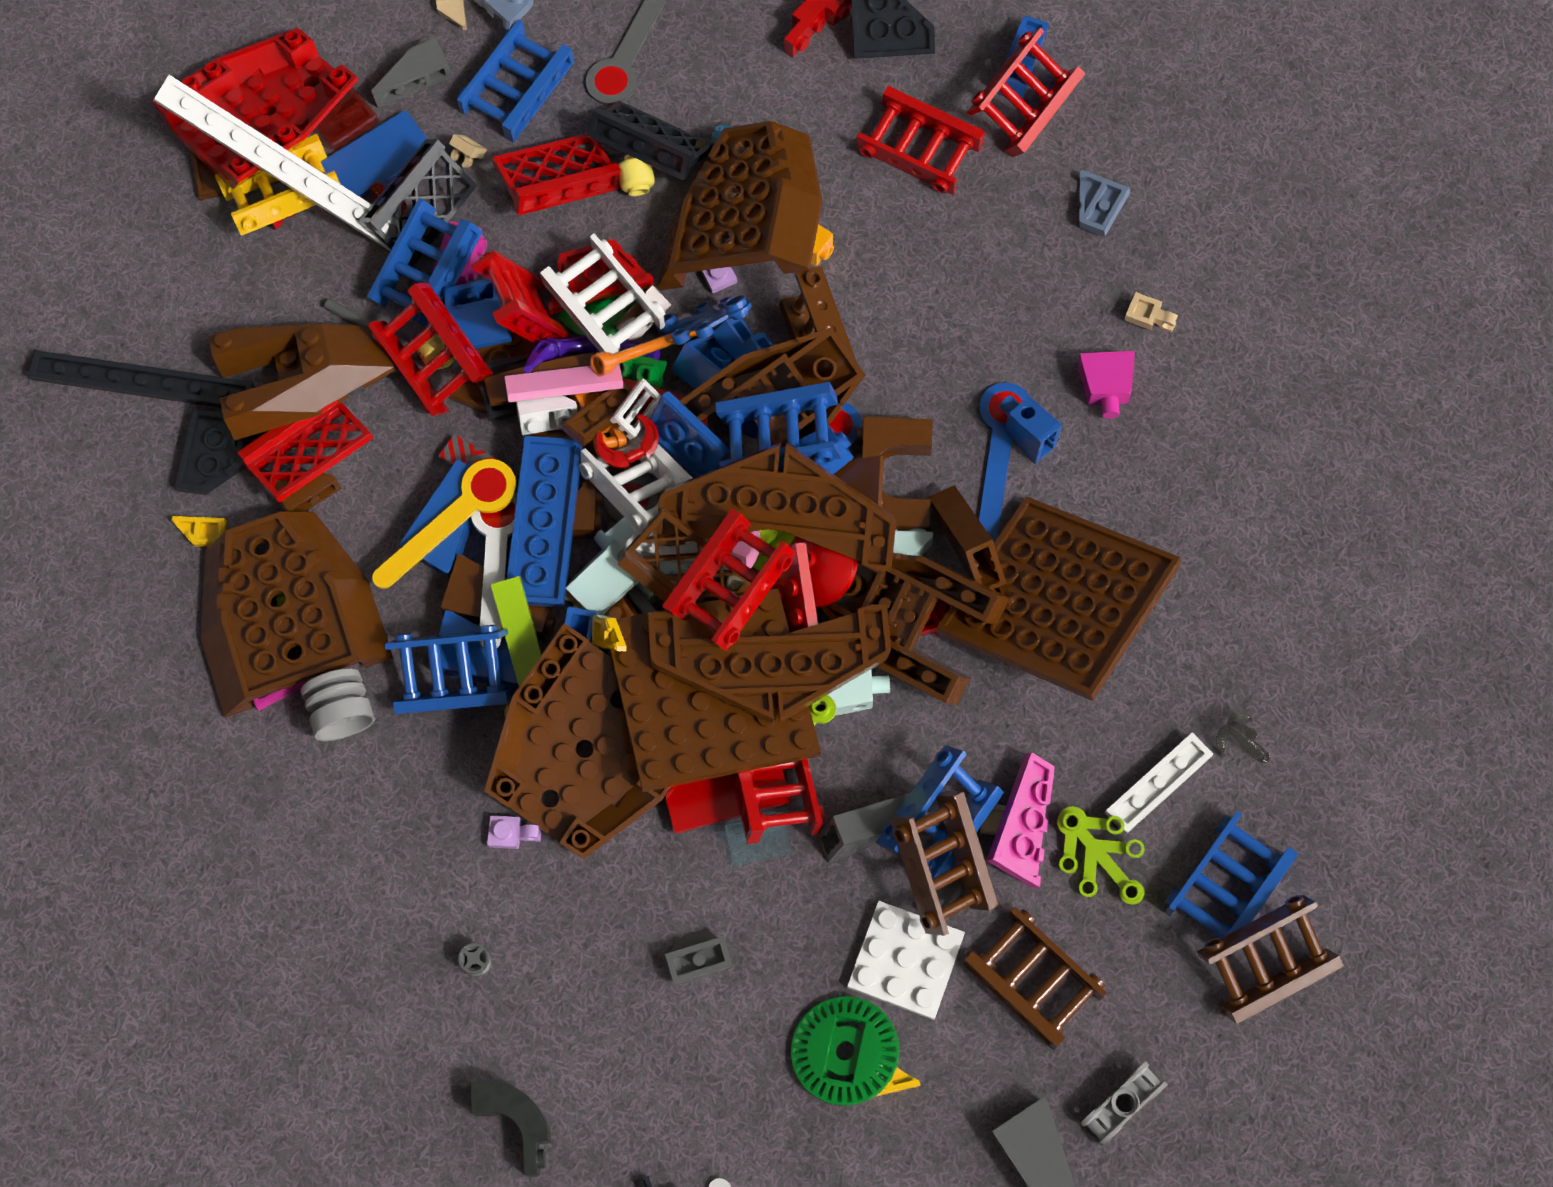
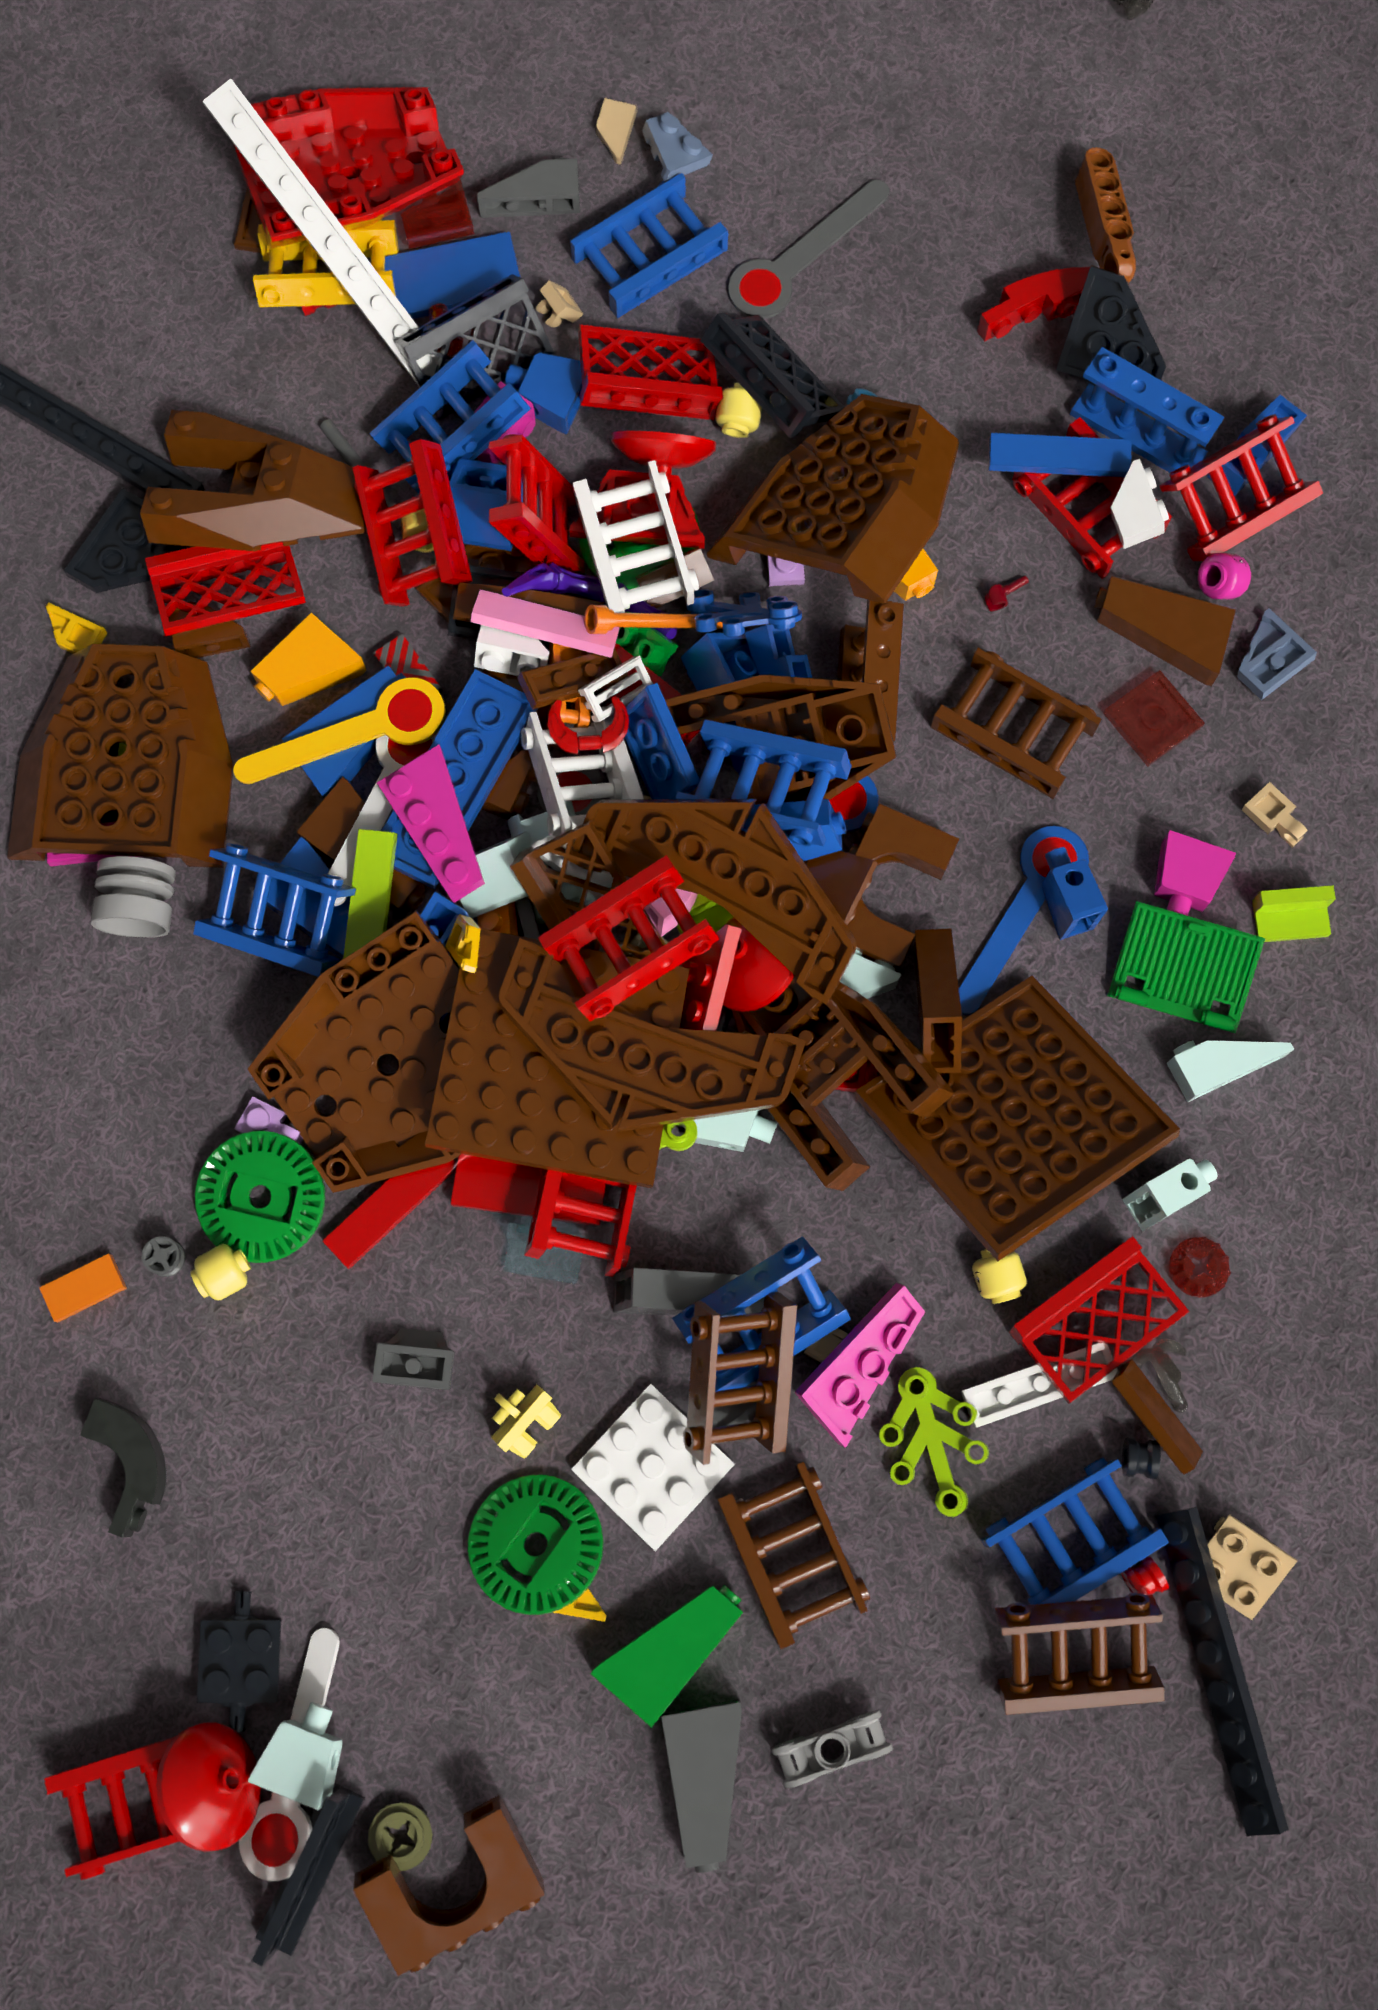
camera: 20 degrees right, 5 degrees up
(392, 483) = (306, 663): none -> light orange slope
(423, 1009) = (83, 1288): none -> orange tile
(490, 210) = (552, 387): none -> blue torso
(523, 952) = (220, 1272): none -> light yellow head
(534, 914) = (268, 1161): none -> green piece
(540, 553) = (432, 816): none -> dark pink wing
(599, 221) = (667, 449): none -> red dish
(626, 859) = (384, 1212): none -> red tile
(791, 962) = (512, 1432): none -> light yellow hips
(882, 234) = (997, 599): none -> dark red hand
(885, 118) = (1059, 455): none -> blue tile
(937, 51) = (1152, 396): none -> blue fence
(941, 347) = (1015, 757): none -> reddish brown fence
(957, 135) = (1135, 508): none -> white slope
(976, 1089) = (665, 1657): none -> green slope
(1015, 209) = (1168, 625): none -> reddish brown slope
(1033, 279) = (1153, 718): none -> clear red tile
(1040, 159) = (1224, 576): none -> dark pink head
(1096, 718) = (1001, 1278): none -> light yellow head
(1133, 445) = (1186, 966): none -> green window
(1159, 704) = (1079, 1292): none -> red fence
(1186, 504) = (1217, 1063): none -> light aqua slope
(1191, 609) = (1170, 1192): none -> light aqua torso
(1192, 378) = (1293, 913): none -> lime panel
(1223, 659) = (1182, 1268): none -> clear red gear
(1252, 770) = (1157, 1416): none -> reddish brown tile
(1253, 805) = (1141, 1458): none -> black wheel
(1293, 885) = (1145, 1577): none -> red wheel
(1356, 851) = (1246, 1565): none -> tan hinge
(1376, 931) = (1222, 1673): none -> black plate

